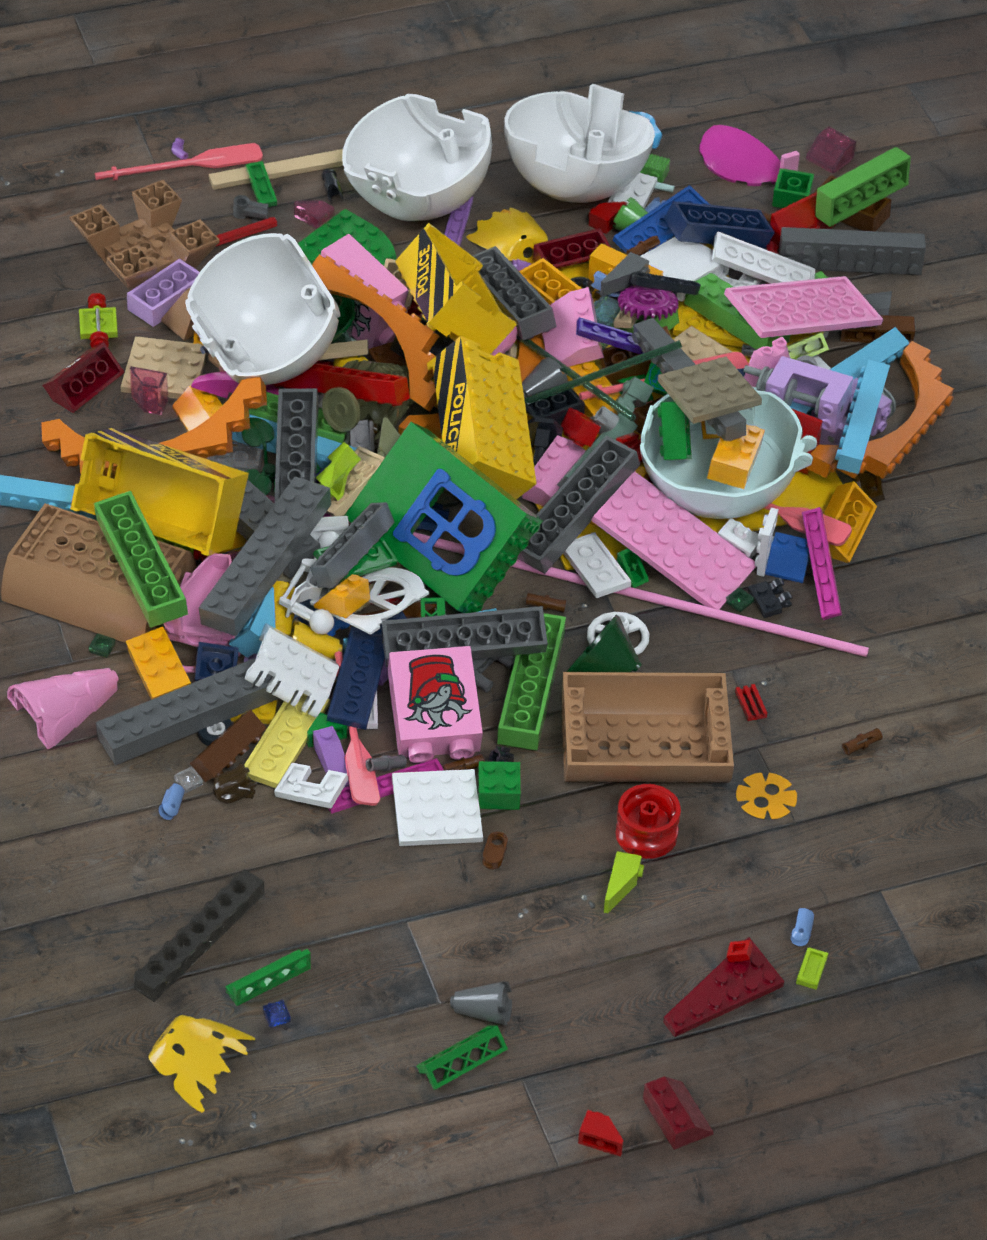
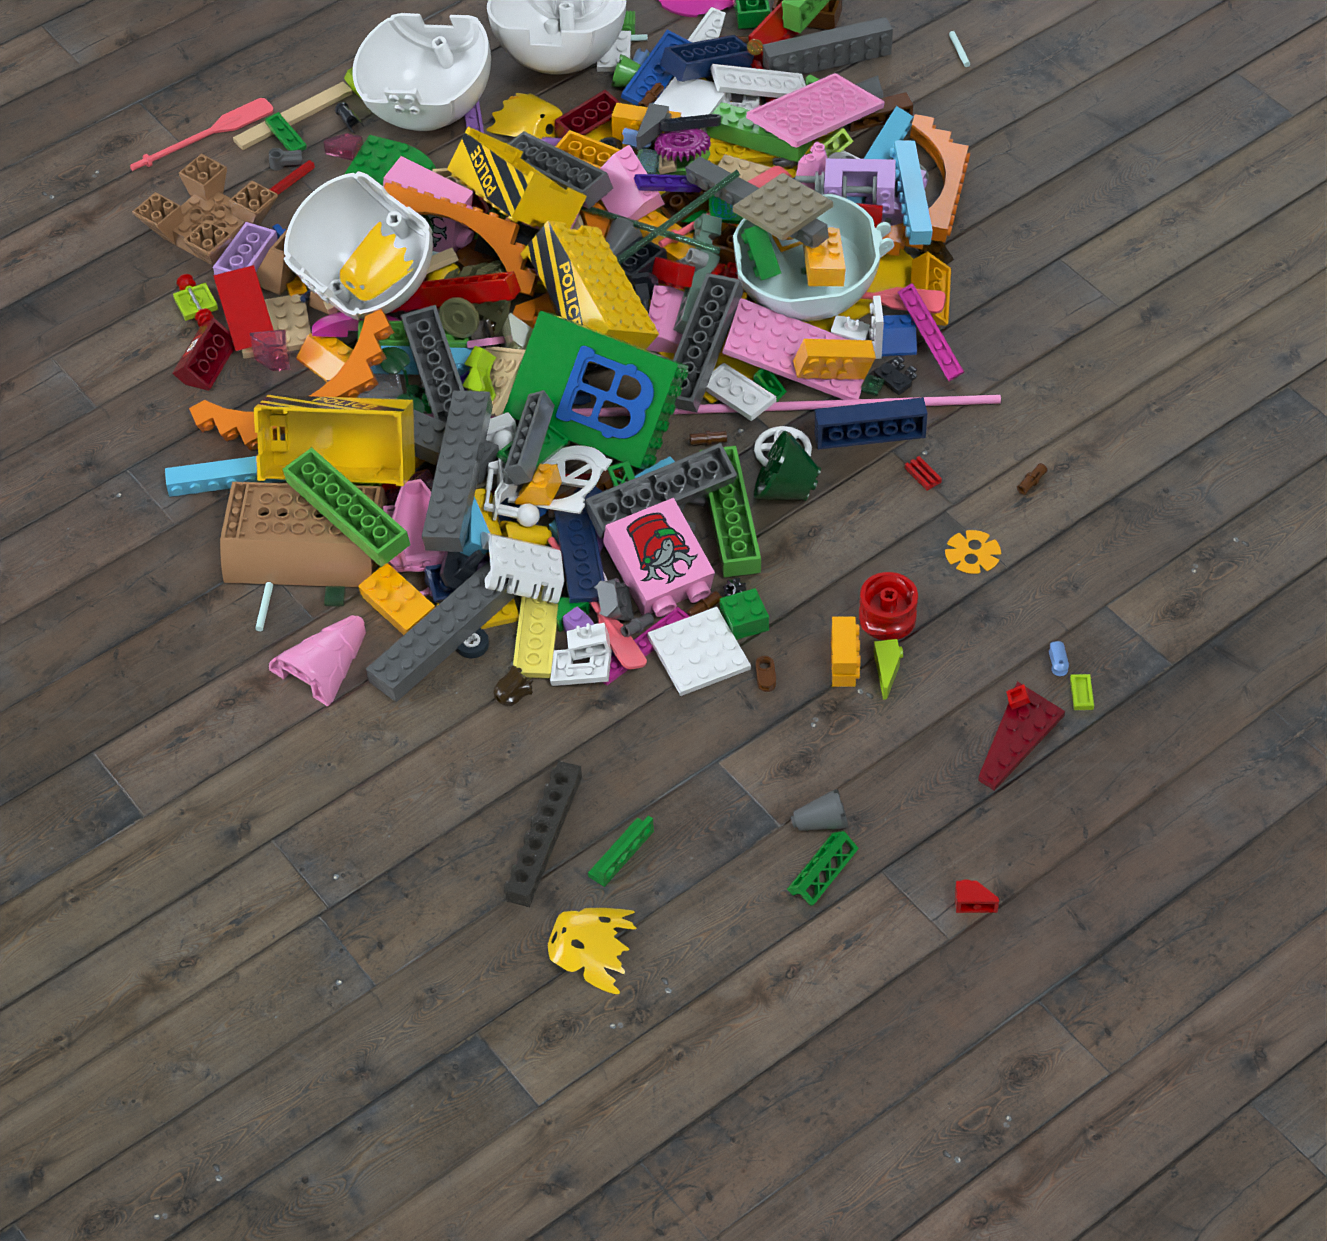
camera: 15 degrees left, 5 degrees up
(29, 635) = (264, 606): none -> light aqua bar
(140, 337) = (243, 305): none -> red sticker
(171, 802) = (463, 719): medium blue piece -> none
(177, 149) = (194, 122): medium lavender arm -> none
(188, 779) = (468, 695): clear plate -> none
(228, 746) = (491, 653): reddish brown brick -> none
(230, 651) = (459, 567): none -> black piece
(273, 332) = (374, 265): none -> yellow piece
(276, 1013) = (643, 882): clear blue tile -> none
(326, 762) = (588, 641): none -> white brick
(363, 442) = (485, 342): none -> bright pink tile
(373, 731) = (615, 600): none -> dark grey slope
(581, 851) = (845, 651): none -> light orange piece
(604, 215) = (601, 76): red slope -> none
(644, 715) = (843, 511): medium nougat slope -> none
(675, 1112) = (1027, 858): dark red slope -> none
(704, 559) = (834, 359): none -> light orange brick
(716, 636) = (870, 423): none -> dark blue brick
(742, 195) = (709, 27): none -> white wing
(773, 227) = (754, 47): none -> clear yellow plate

